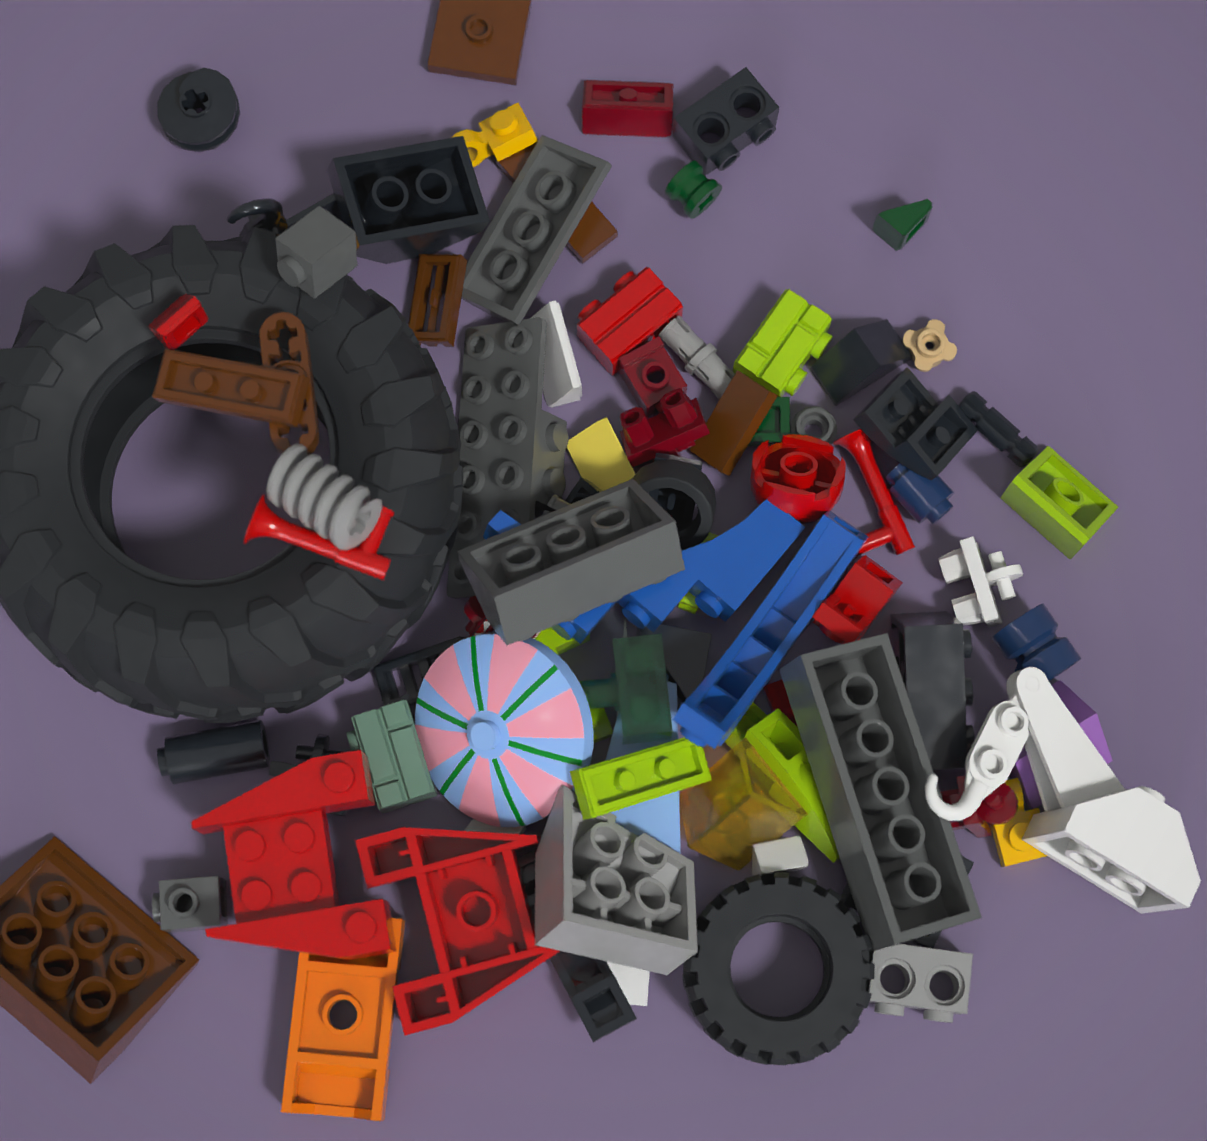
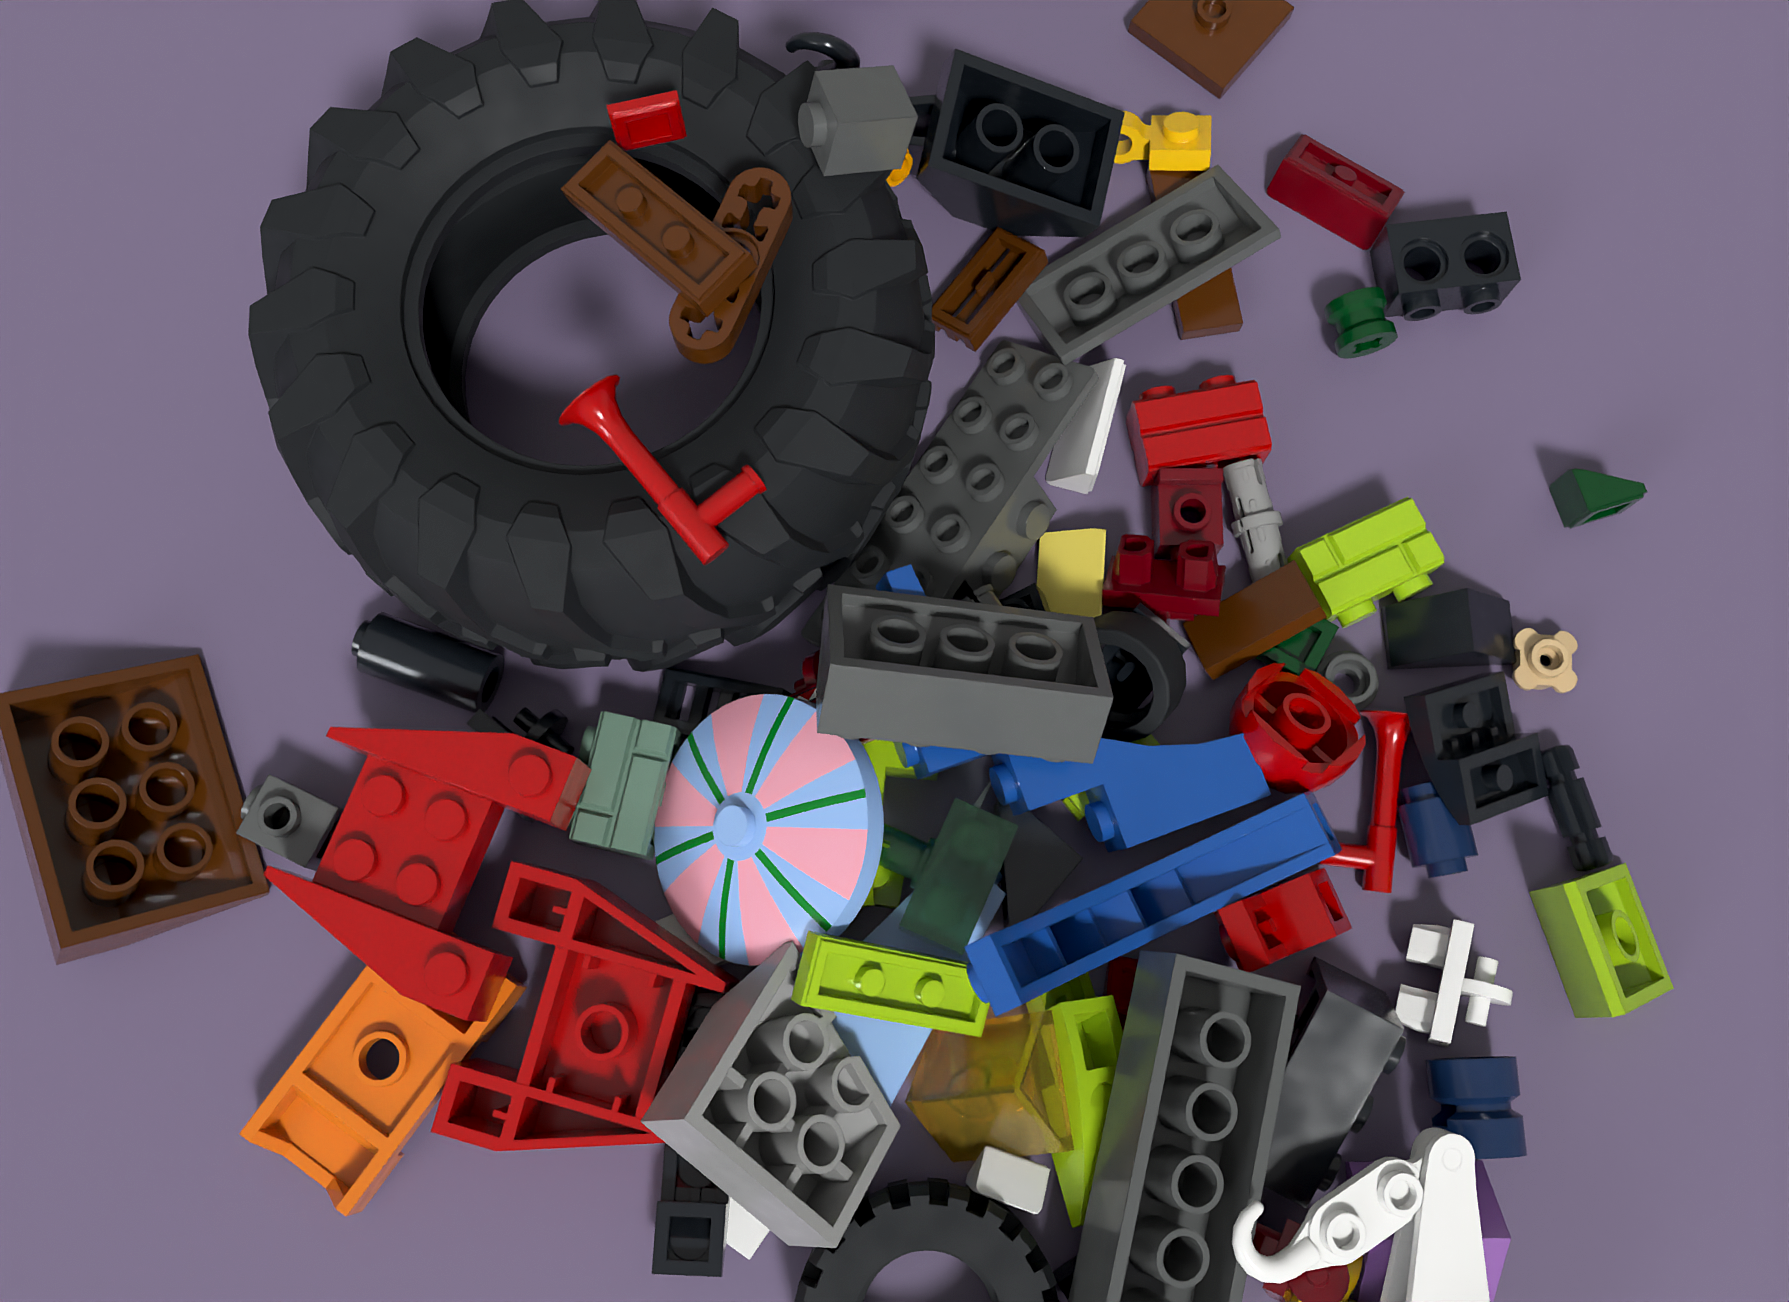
camera: 30 degrees right, 0 degrees up
(322, 499) = (684, 419): light grey piece -> none

